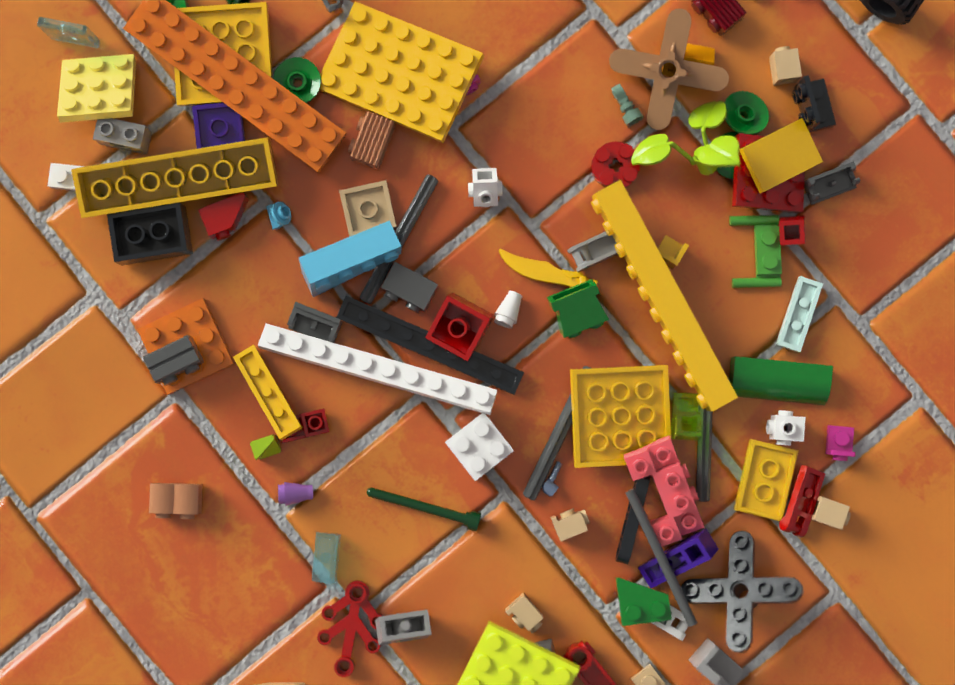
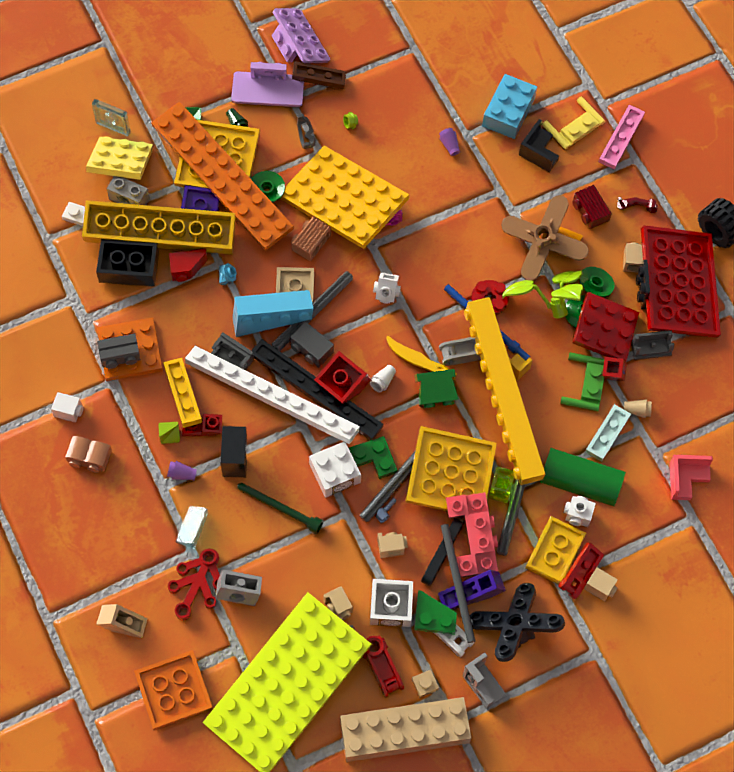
camera: 10 degrees right, 20 degrees down
(132, 445) = (67, 407): none -> white brick
(351, 458) = (234, 451): none -> black panel
(522, 407) = (376, 452): none -> green plate
(588, 600) = (391, 603): none -> white brick
(631, 115) = (510, 264): sand green piece -> none
(659, 226) = (512, 345): none -> blue bar
(781, 155) = (616, 313): yellow tile -> none
(830, 272) = (639, 408): none -> tan cone
(840, 442) = (621, 535): dark pink bracket -> none
(852, 87) = (681, 281): none -> red plate
(898, 346) = (685, 470): none -> coral panel

